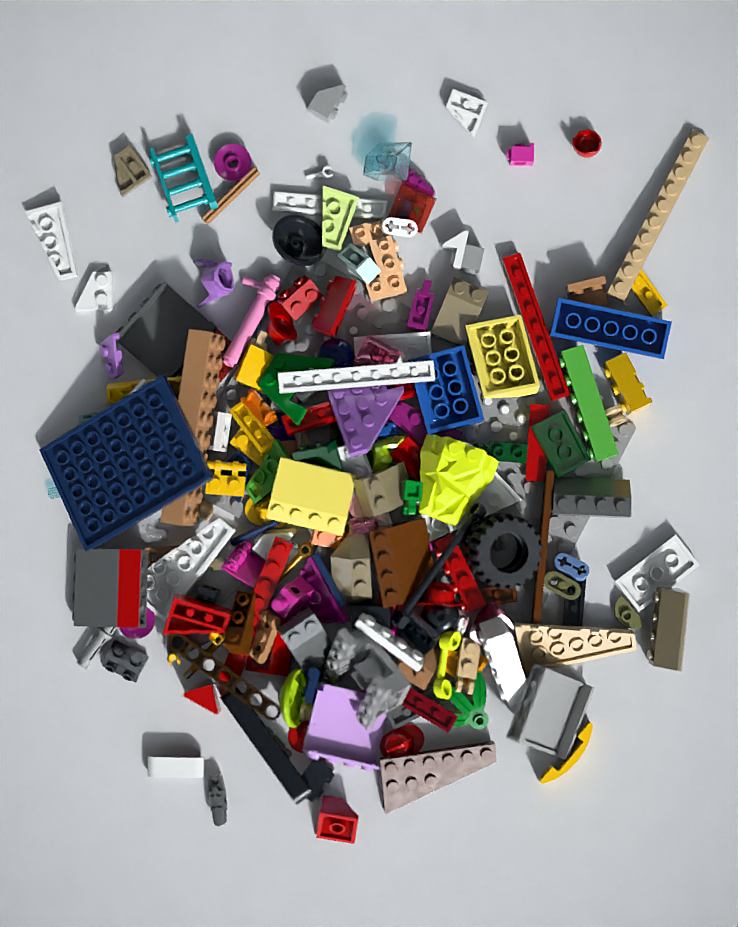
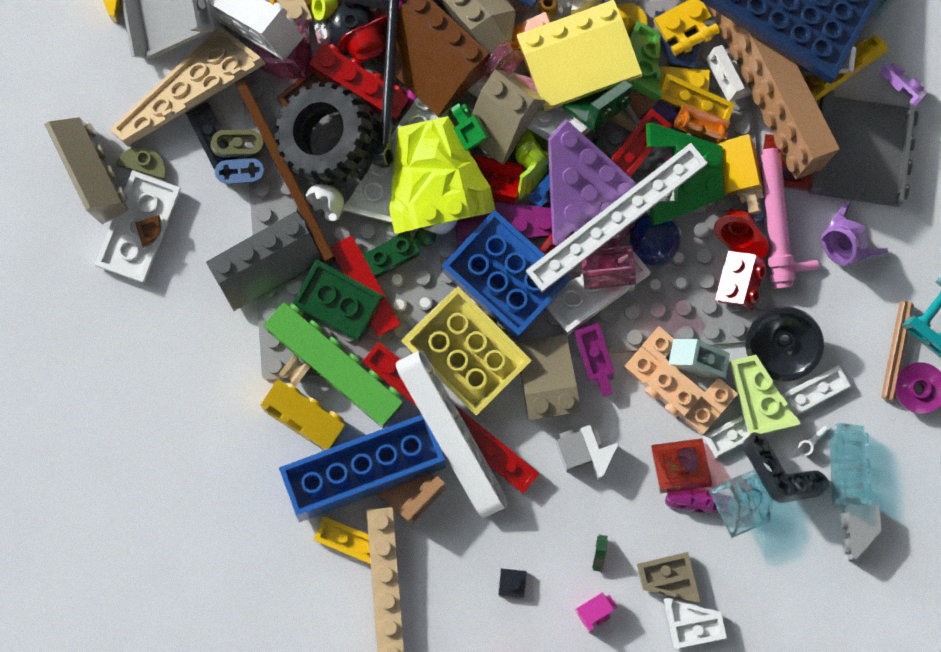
camera: 140 degrees right, 5 degrees down
(309, 142) = (849, 465): none -> clear light blue slope
(334, 306) = (694, 291): red slope -> none
(358, 154) = (778, 483): none -> black beam
(399, 222) = (684, 436): white beam -> none
(462, 147) = (670, 577): none -> dark tan wing
(495, 187) = (600, 553): none -> dark green tile
(525, 511) = (326, 198): none -> white hair
(543, 312) = (452, 434): none -> white beam
(560, 204) = (512, 583): none -> black plate
(652, 564) = (149, 230): none -> reddish brown tile

